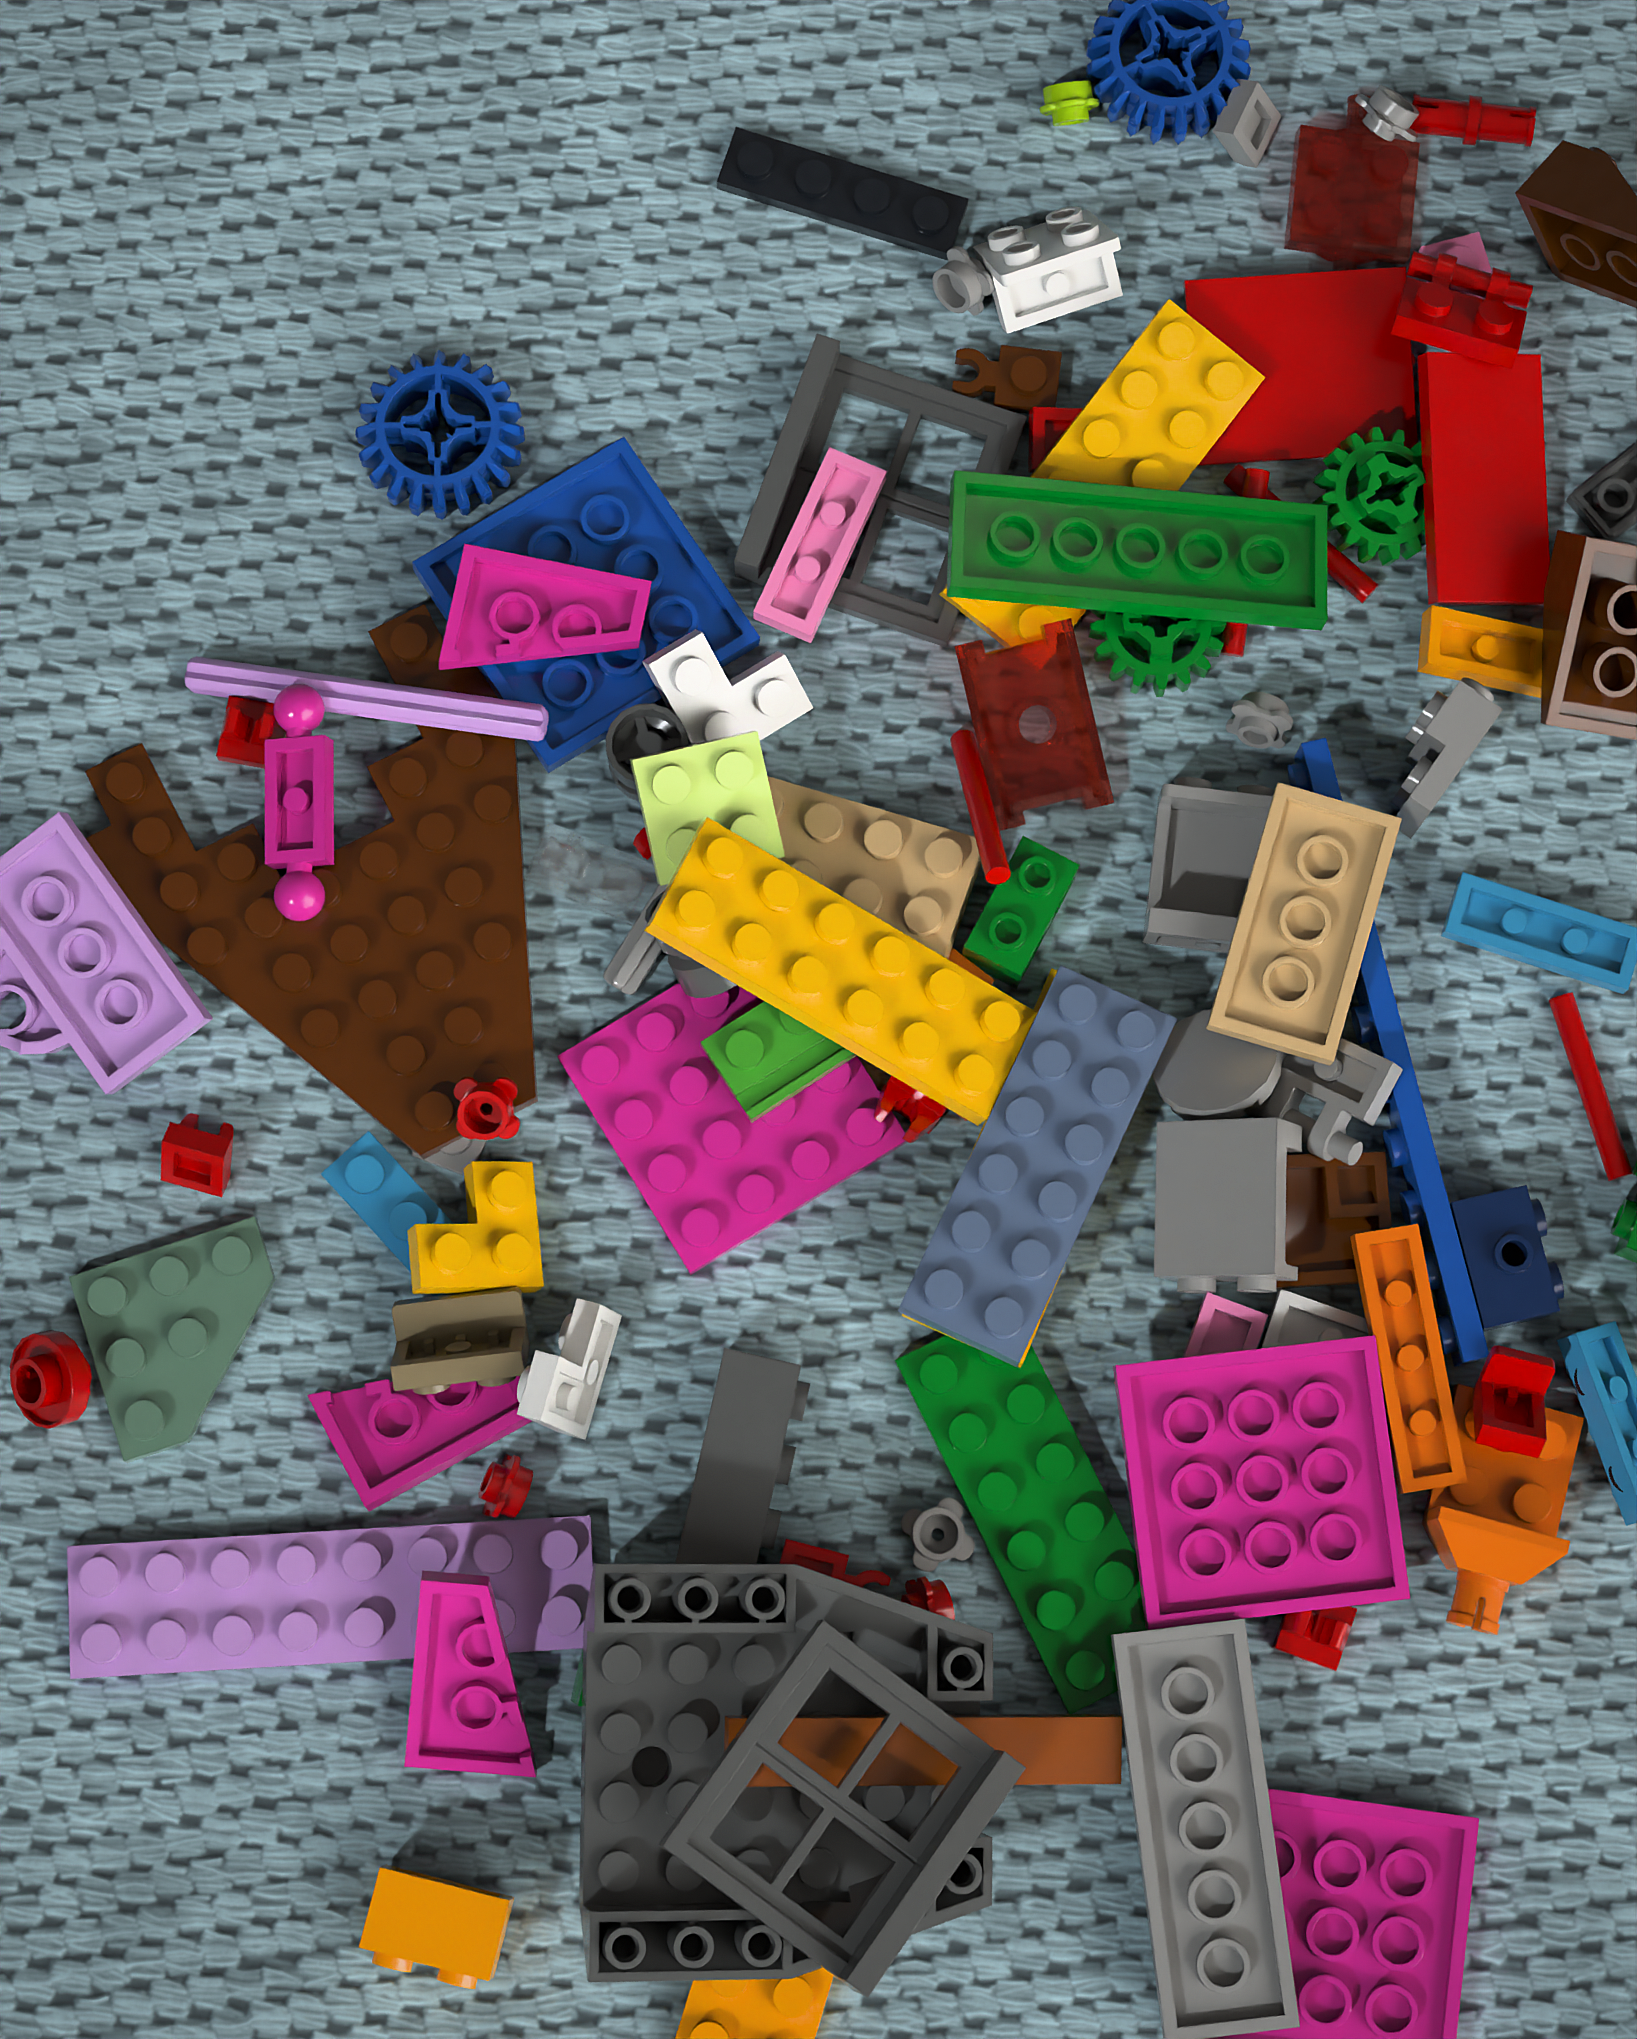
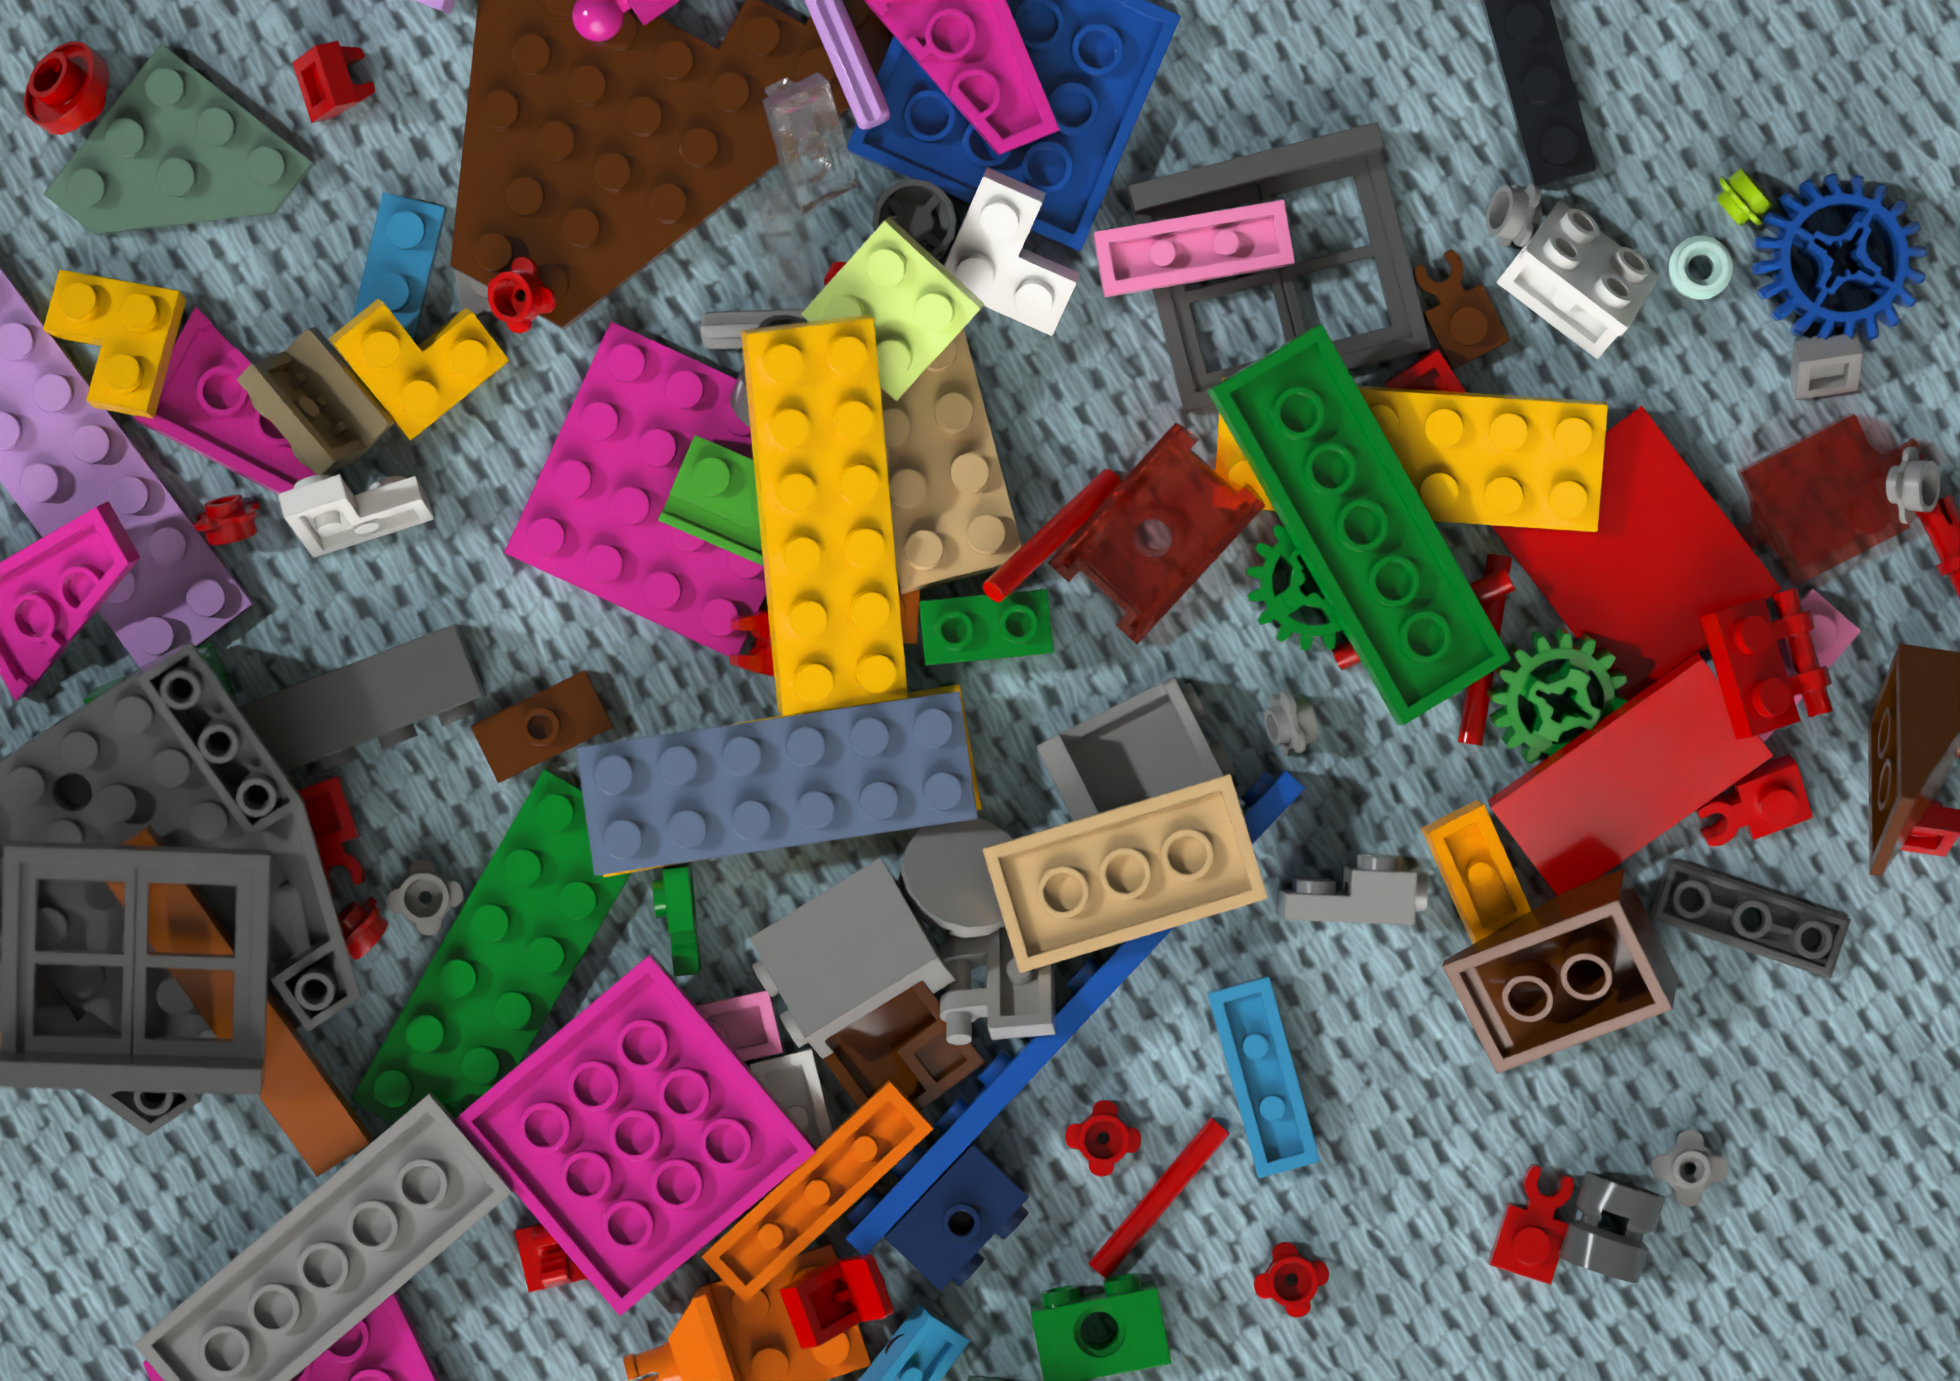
camera: 60 degrees right, 10 degrees up
(282, 1459) = (135, 334): none -> yellow plate
(521, 788) = (809, 141): none -> clear hinge
(857, 1339) = (542, 726): none -> reddish brown plate
(1081, 1320) = (676, 901): none -> green plate
(1104, 154) = (1718, 258): none -> light aqua plate
(1520, 1083) = (1121, 1138): none -> red plate
(1570, 397) = (1762, 801): none -> red plate

